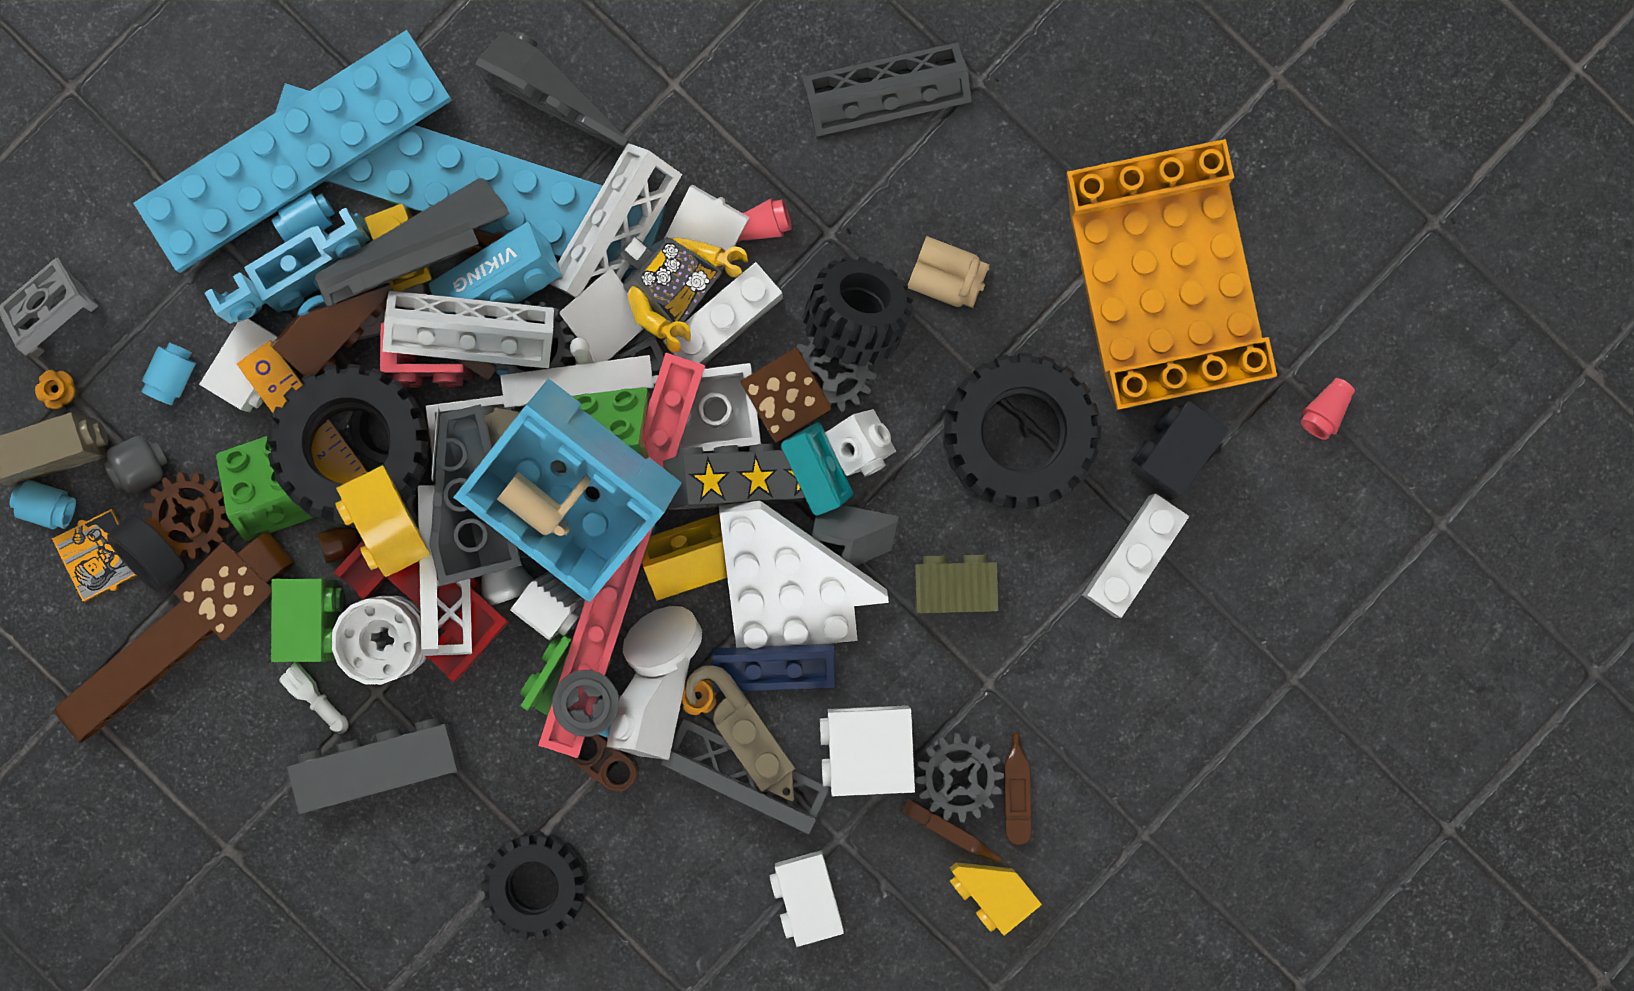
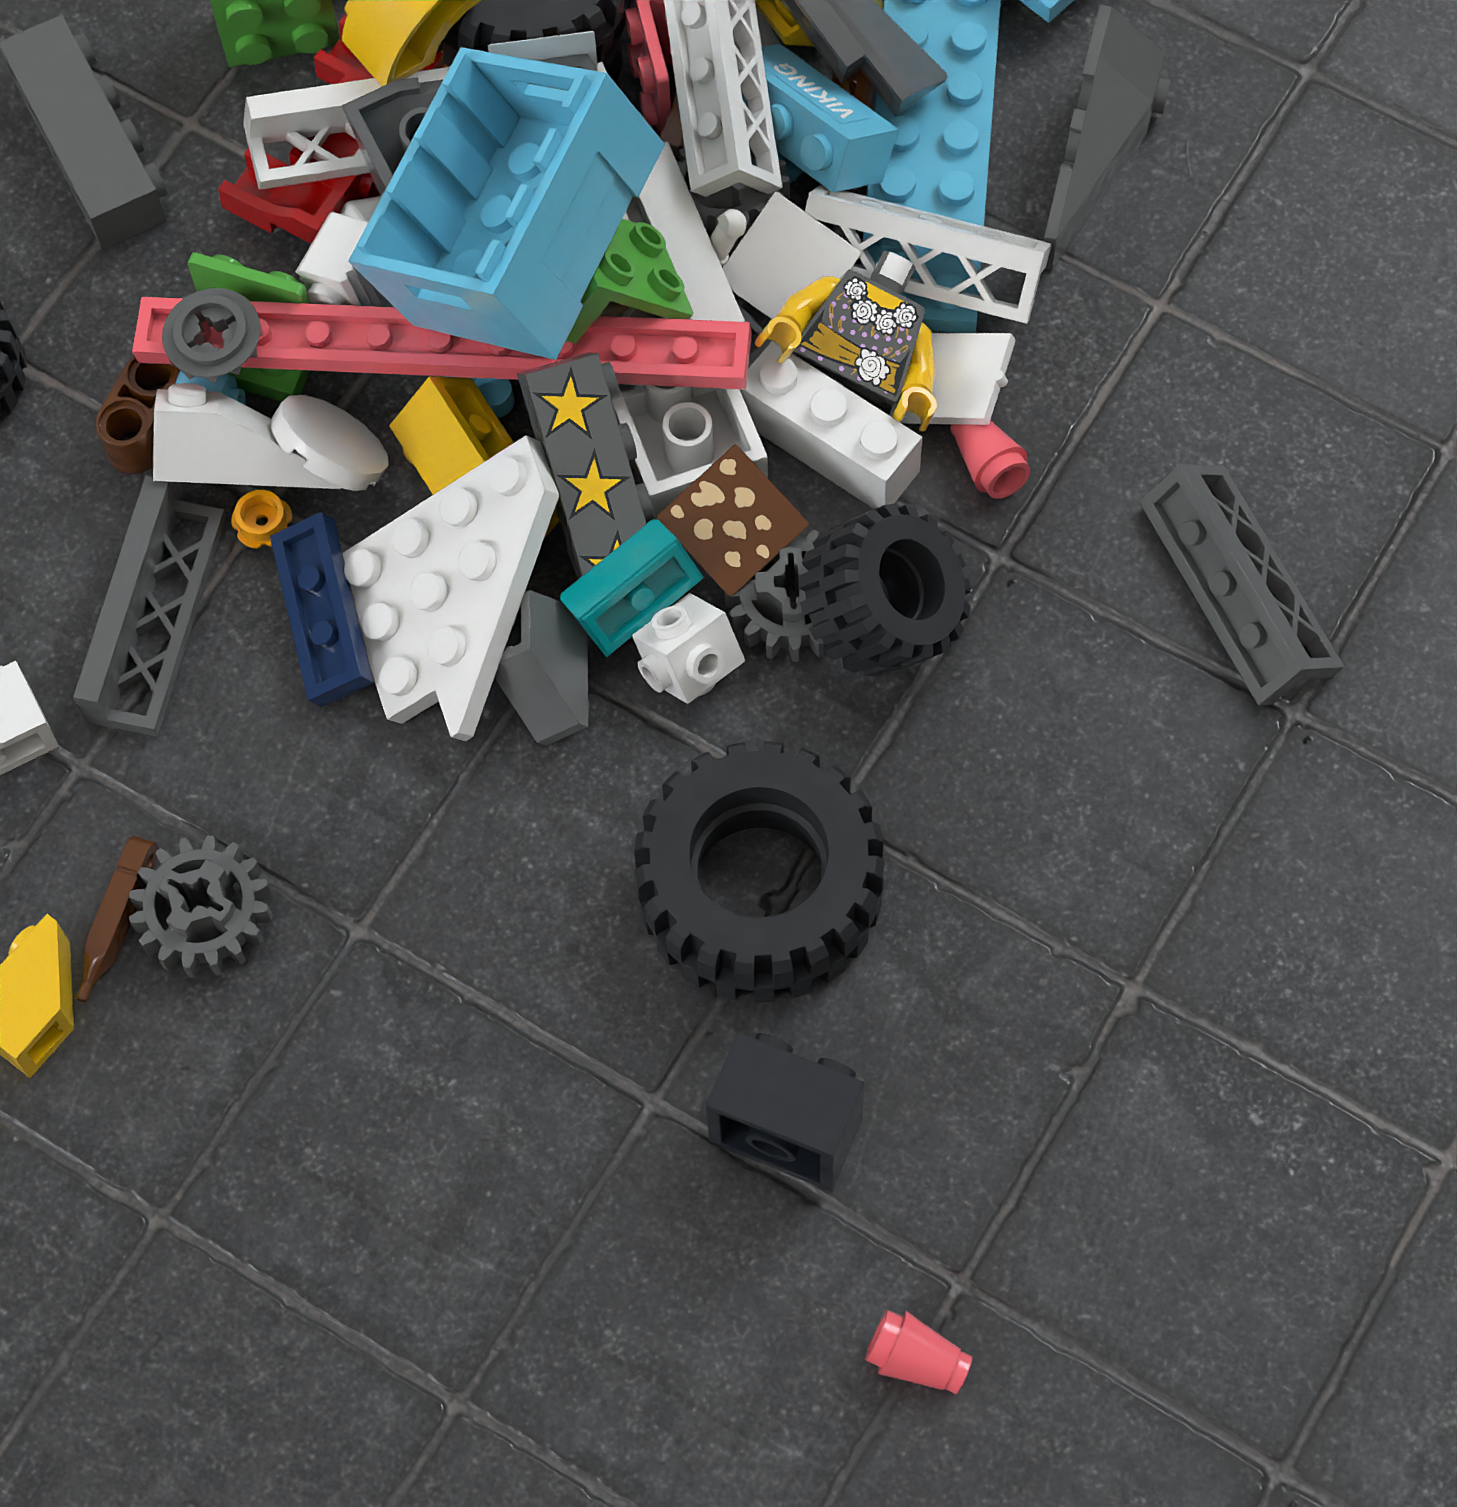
camera: 80 degrees right, 20 degrees down
(303, 687) = (178, 32): white piece -> none
(362, 651) = (249, 57): white wheel -> none
(539, 508) = (475, 163): tan piece -> none
(746, 733) = (211, 590): dark tan plate -> none
(868, 750) = (216, 753): white brick -> none
(948, 274) = (982, 724): tan piece -> none
(956, 586) = (498, 839): olive brick -> none
(1017, 794) = (189, 1006): reddish brown piece -> none
(1135, 555) = (602, 1091): white brick -> none
(1167, 275) = (1071, 1048): light orange slope -> none

